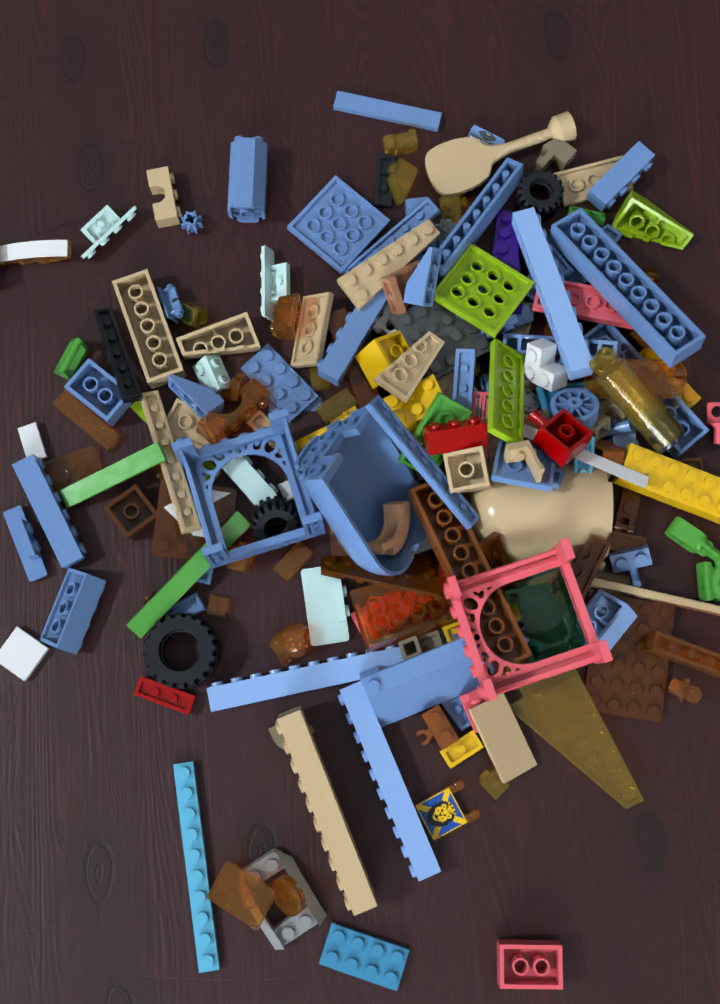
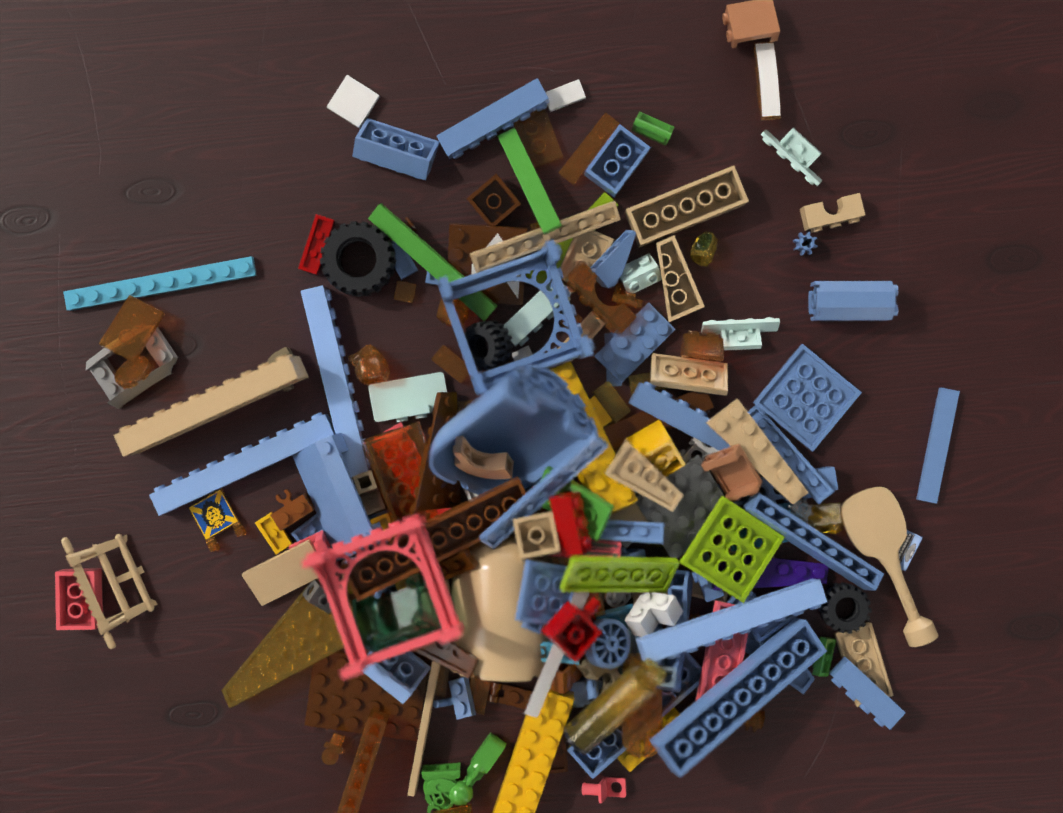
camera: 85 degrees right, 10 degrees up
(26, 545) = (462, 96): medium blue bracket -> none
(117, 355) = (656, 176): black tile -> none
(172, 309) = (707, 229): medium blue hinge -> none
(364, 956) = (83, 444): dark azure plate -> none
(383, 195) = (857, 444): black tile -> none
(400, 143) = (900, 460): clear yellow leg -> none
(401, 179) = (857, 462): clear yellow slope -> none
(422, 284) = (732, 487): medium blue slope -> none
(491, 783) = (243, 562): clear yellow bracket -> none
(524, 451) = (556, 593): tan bracket -> none
(528, 700) = (317, 596): none -> dark grey bracket
(545, 909) = (75, 560): none -> tan piece
(557, 153) = (893, 626): dark tan brick -> none
(646, 221) = (820, 717): lime wedge -> none

